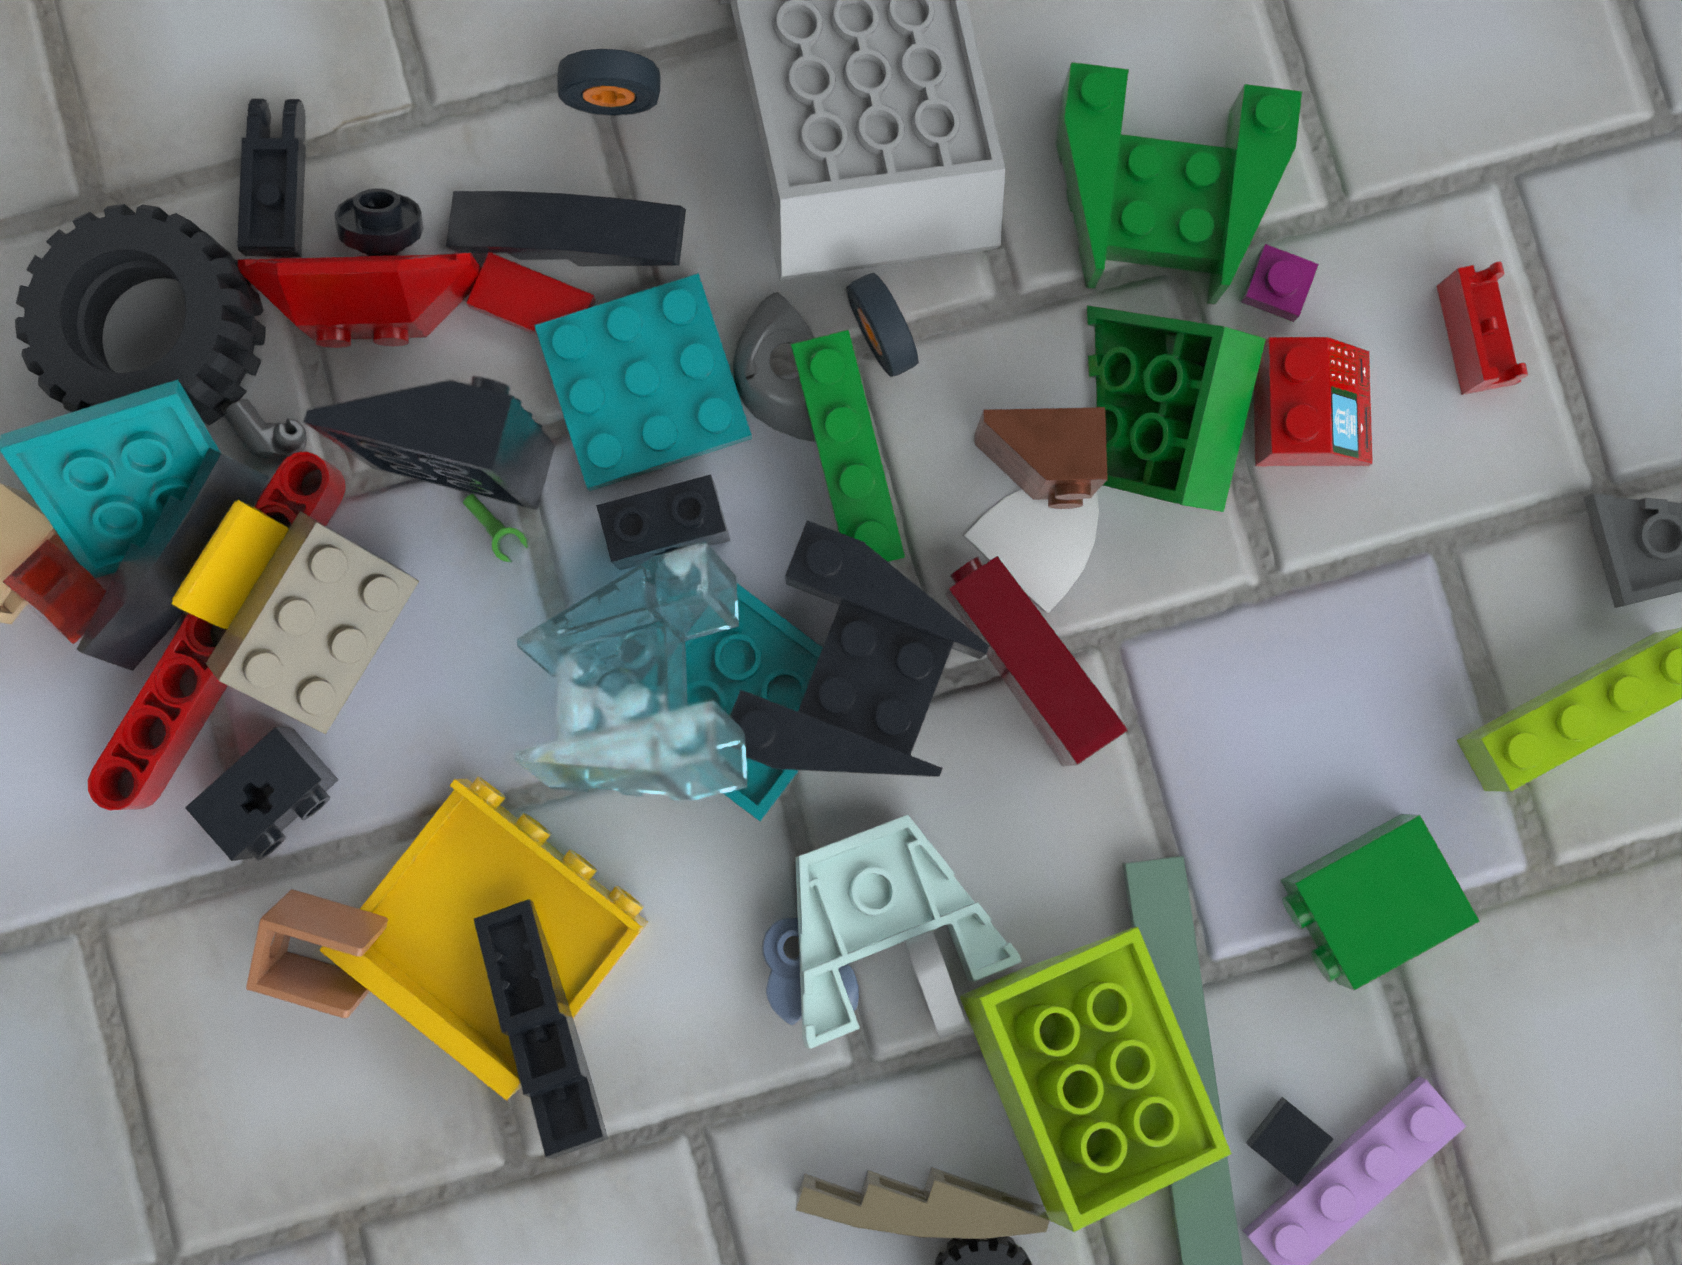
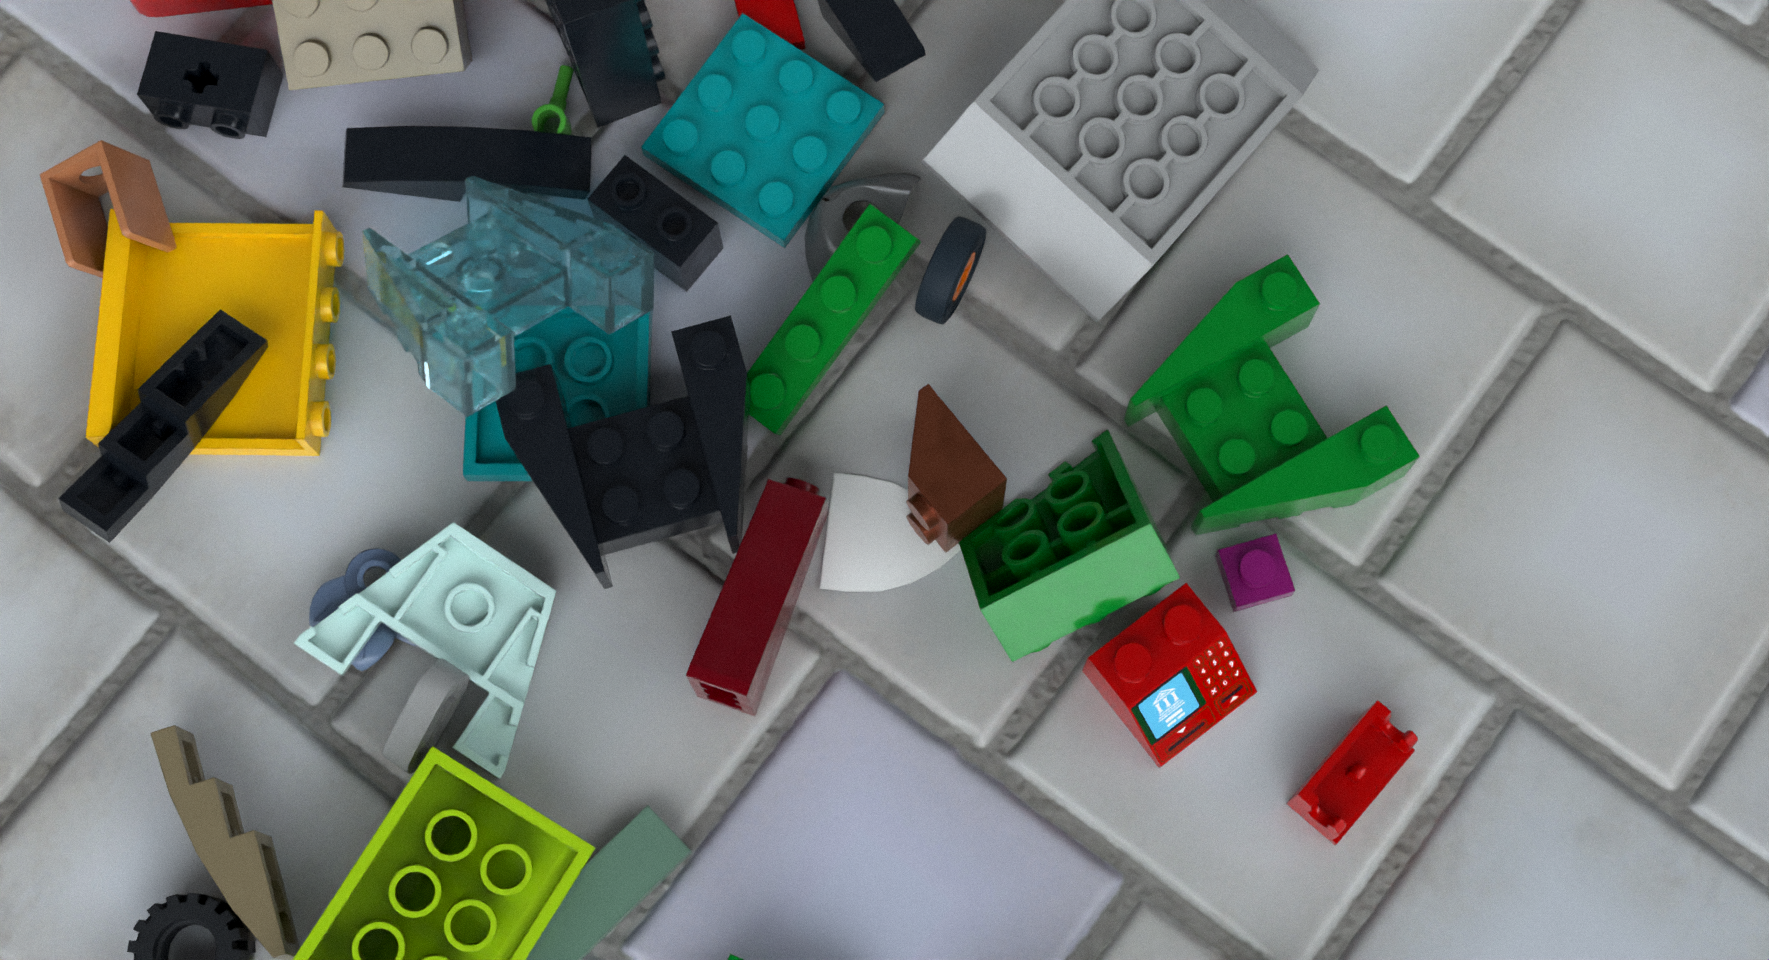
camera: 55 degrees right, 10 degrees down
(486, 640) = (440, 158): none -> black slope

